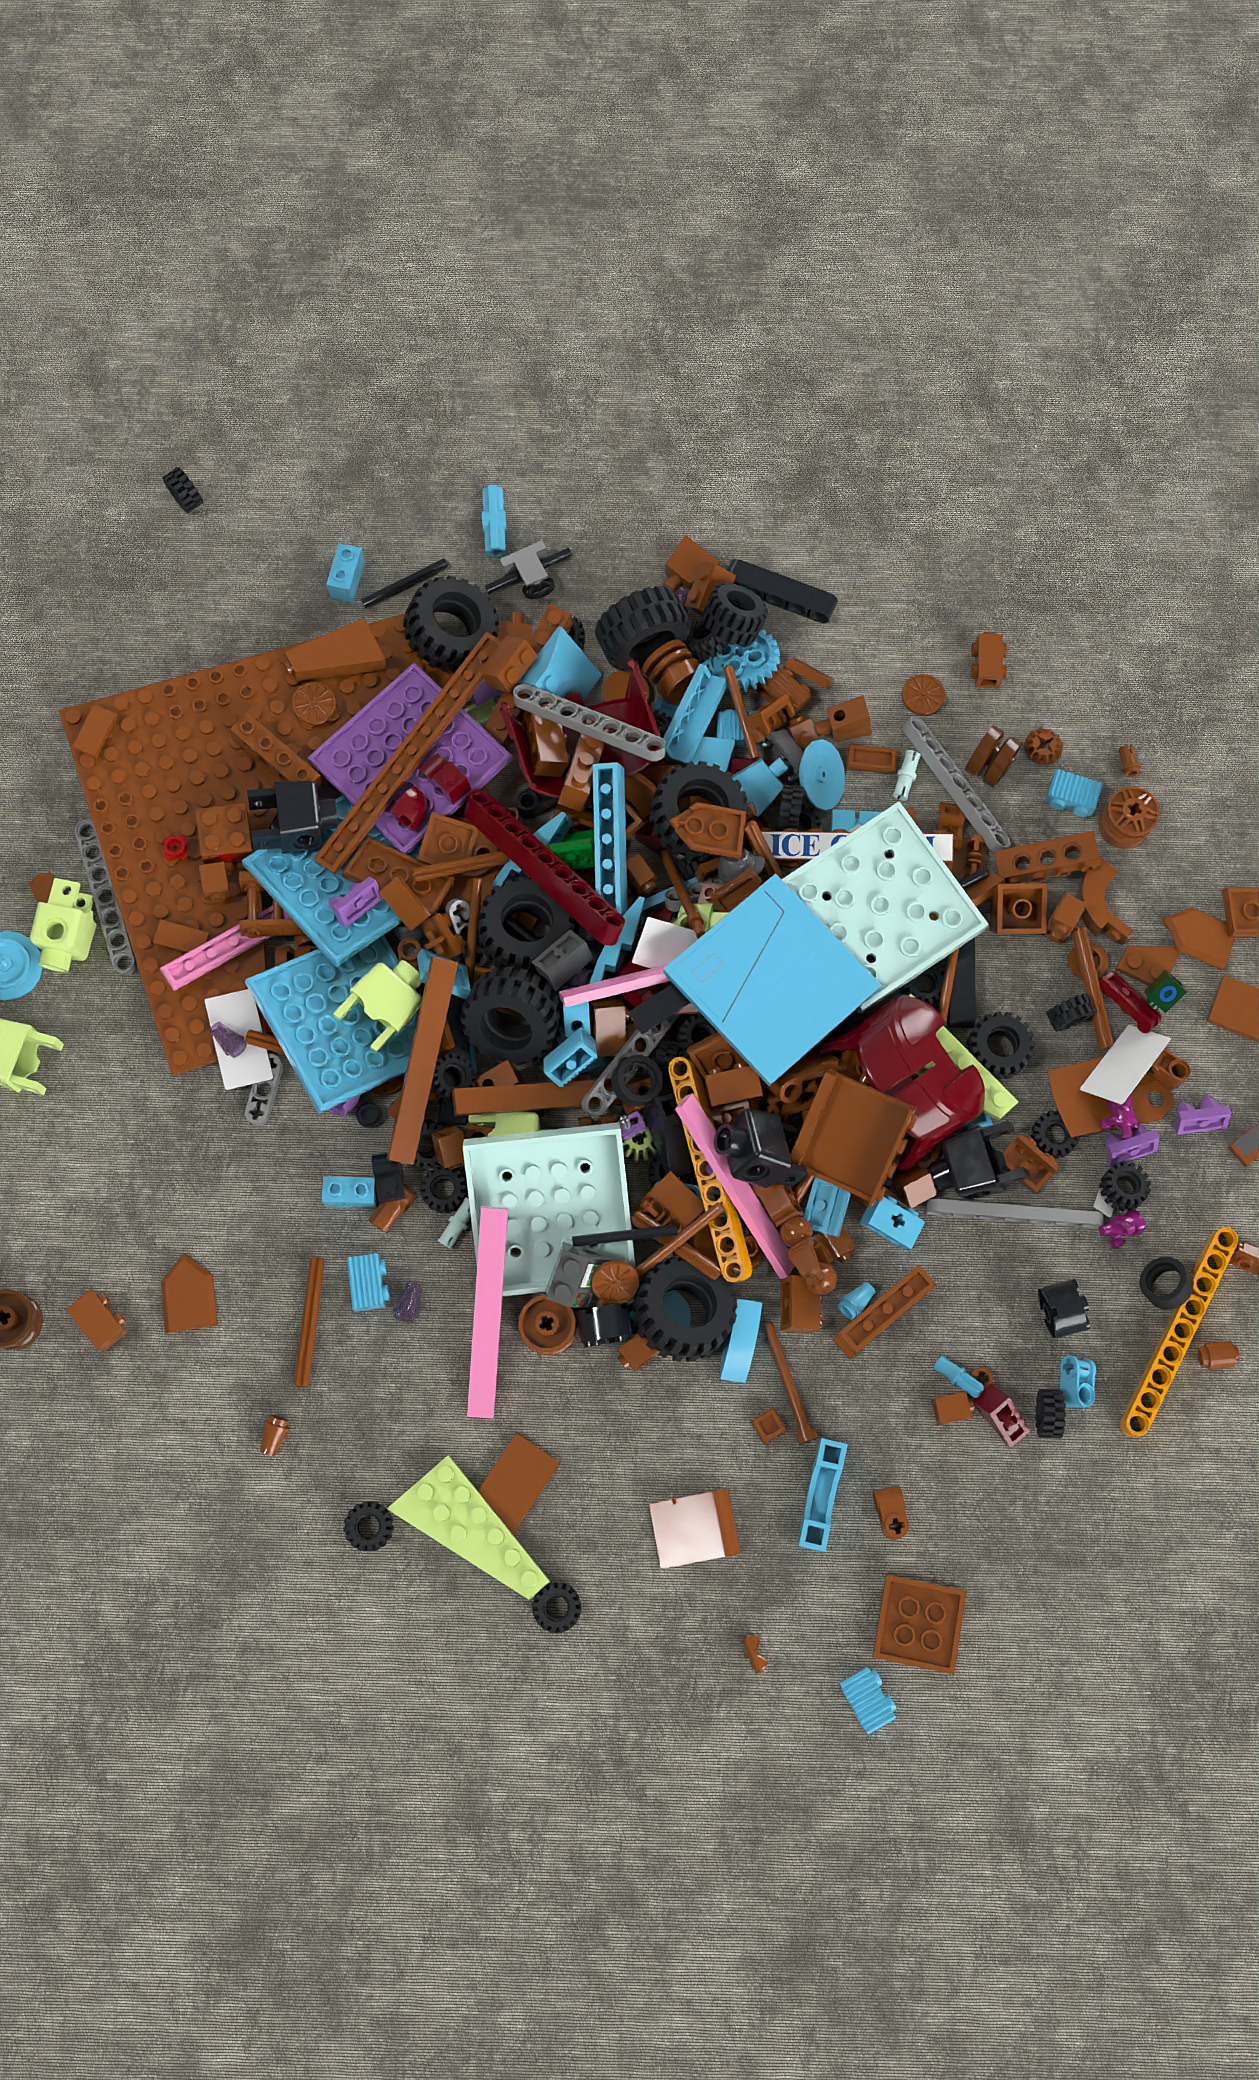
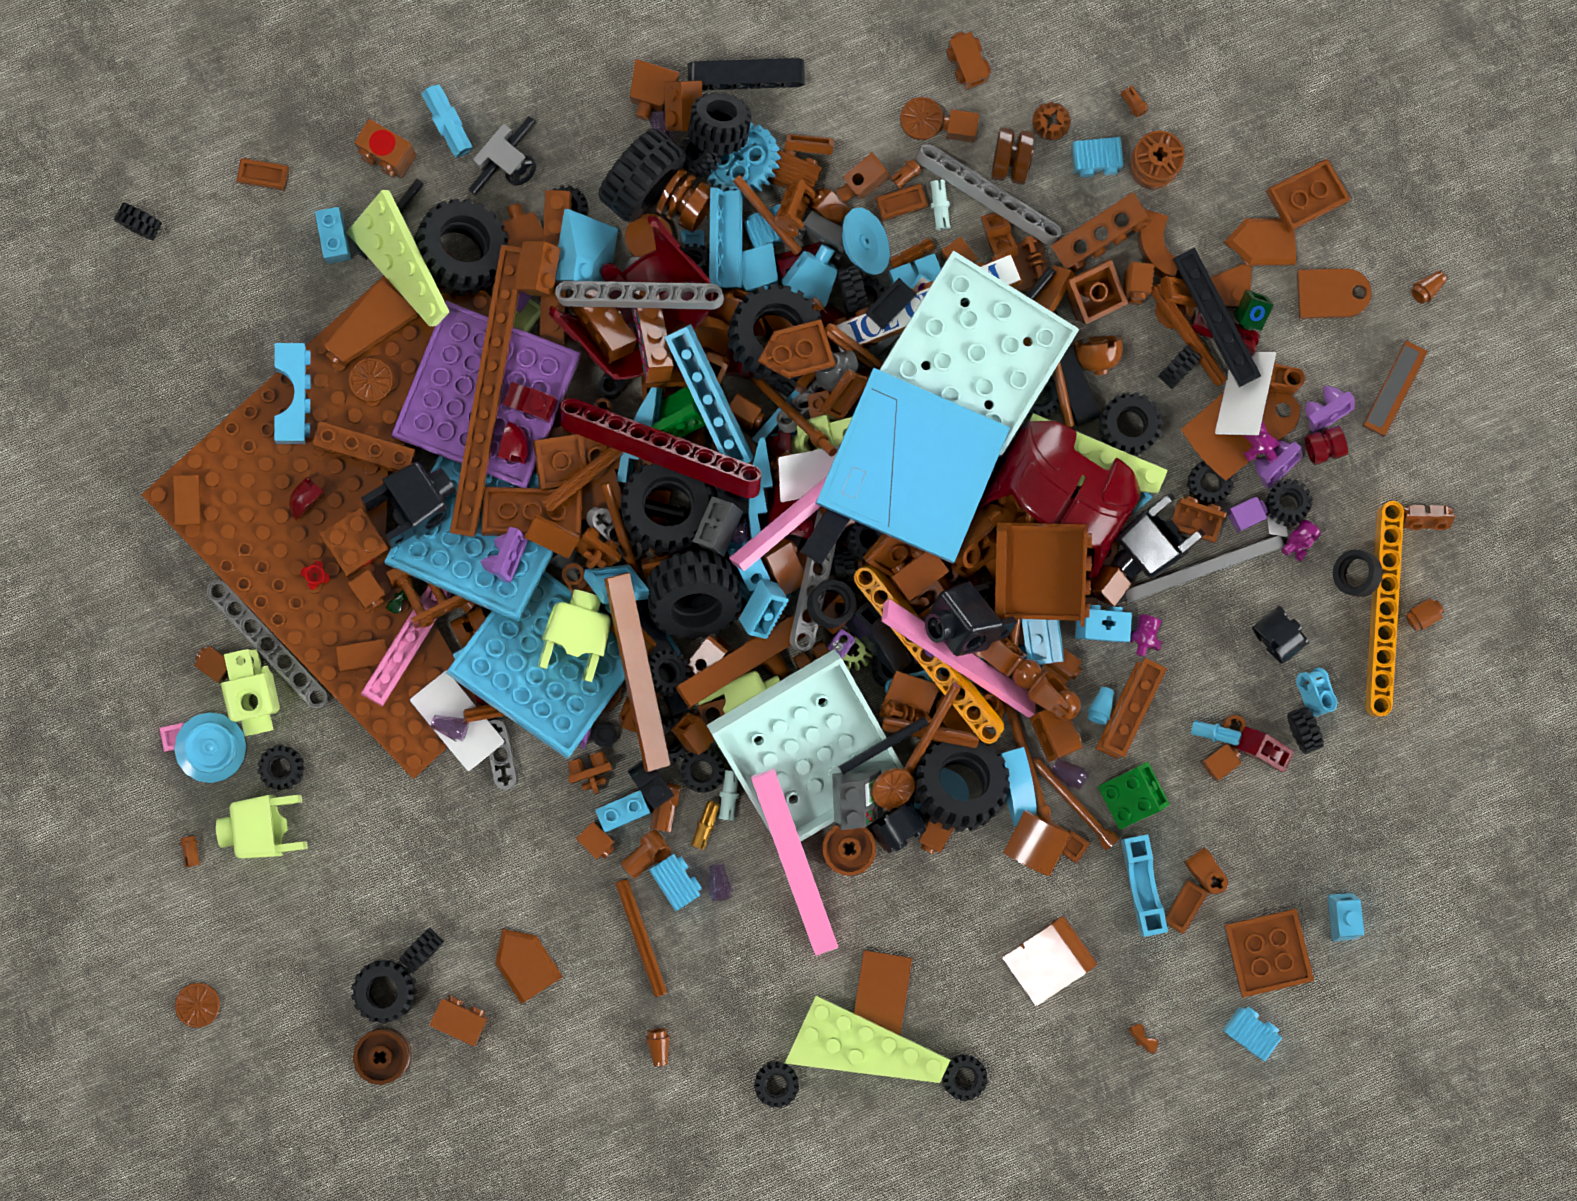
camera: 30 degrees left, 10 degrees up
(28, 1244) = (362, 991): none -> black tyre
(68, 1021) = (270, 757): none -> black tyre
(96, 1235) = (421, 950): none -> black tyre
(201, 776) = (304, 497): none -> dark red brick
(222, 706) = (291, 425): none -> medium azure arch
(234, 907) = (395, 604): none -> dark green piece
(311, 500) = (262, 174): none -> dark orange tile
(311, 1209) = (596, 841): none -> dark orange brick
(327, 1139) = (578, 773): none -> dark orange hips
(359, 1242) = (652, 850): none -> dark orange piece
(388, 601) = (390, 246): none -> yellowish green wing
(422, 1241) = (705, 825): none -> pearl gold axle
(426, 518) = (385, 149): none -> dark orange brick
(559, 1118) = (777, 666): none -> dark orange cone
(734, 1405) = (1037, 843): none -> dark orange slope
(754, 1376) = (1043, 810): none -> dark orange bar
(797, 1353) = (1071, 774): none -> clear purple cone
(819, 832) = (890, 304): none -> black tile
(850, 1402) = (1133, 795): none -> green bracket
(854, 1537) = (1185, 906): none -> dark orange tile
(862, 805) = (912, 253): none -> dark orange axle
(887, 735) = (906, 173): none -> dark orange pin
(931, 1250) = (1146, 634): none -> magenta piece
(957, 714) = (961, 125): none -> dark orange brick
(998, 969) = (1099, 353): none -> dark orange cylinder
(1013, 1624) = (1345, 917): none -> medium azure torso
(1079, 1180) = (1247, 514): none -> medium lavender brick
(1102, 945) = (1176, 291): none -> dark orange tile
(1126, 982) = (1216, 317): none -> black tile
(1189, 1148) = (1329, 444): none -> dark red wheel

